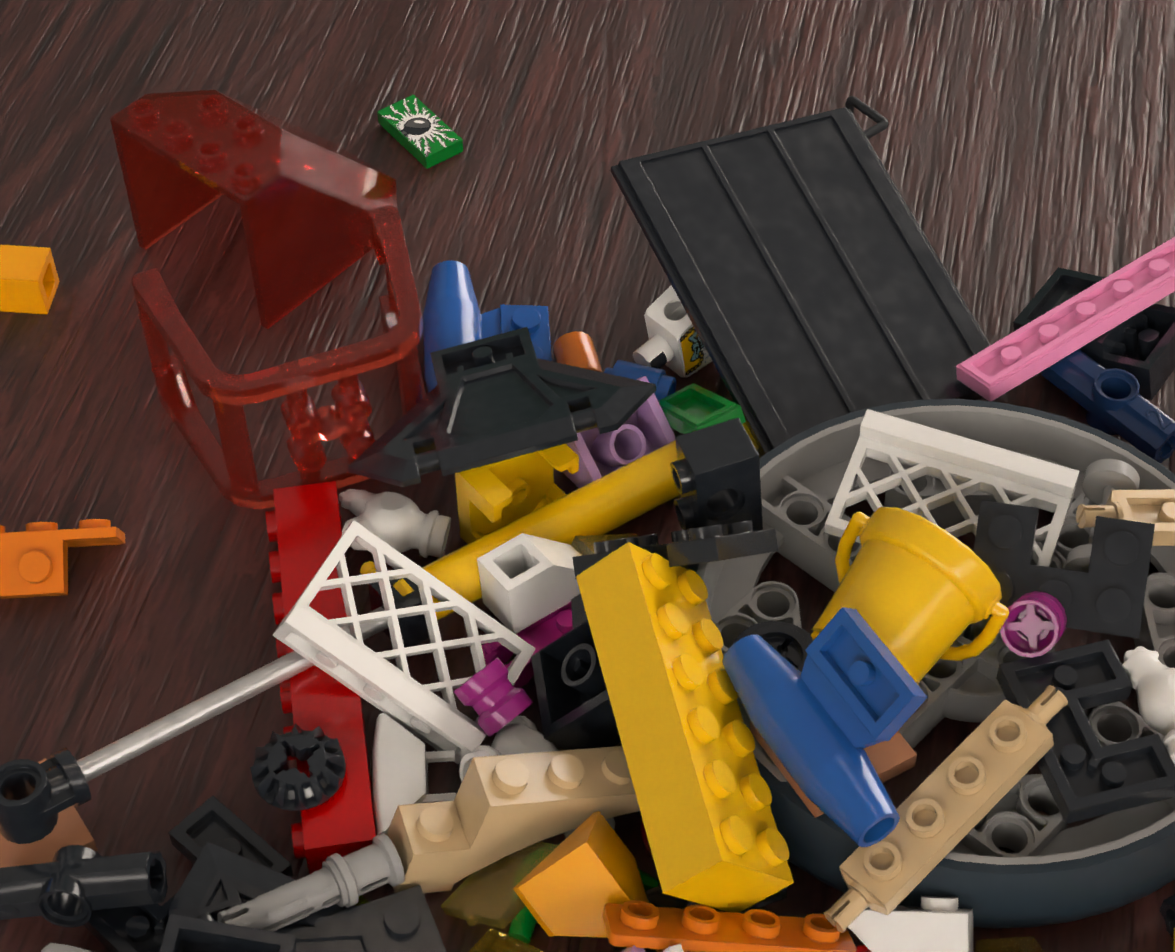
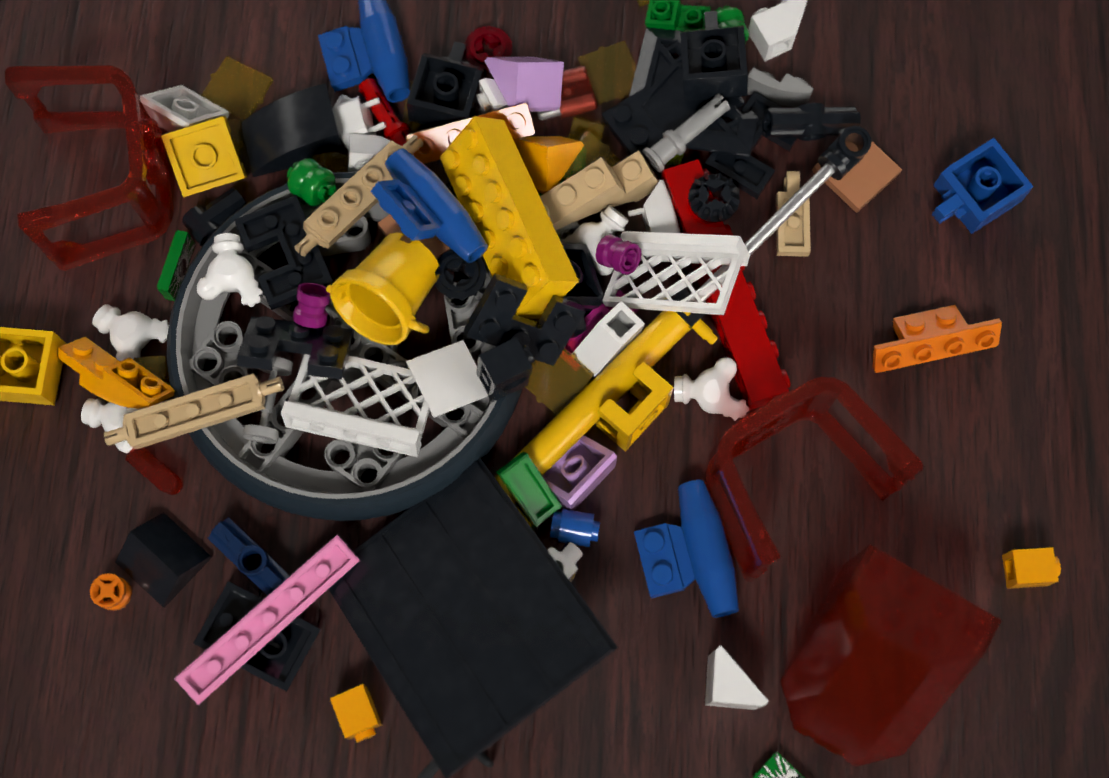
camera: 170 degrees right, 25 degrees up
(163, 771) = (794, 233): none -> tan plate
(466, 193) = (729, 684): none -> white slope
(495, 406) = (656, 441): black plate -> none
(576, 350) = (619, 547): orange piece -> none
(808, 518) = (447, 378): none -> white sticker
(964, 240) = (356, 713): none -> light orange brick
(1040, 829) = (311, 182): none -> green piece

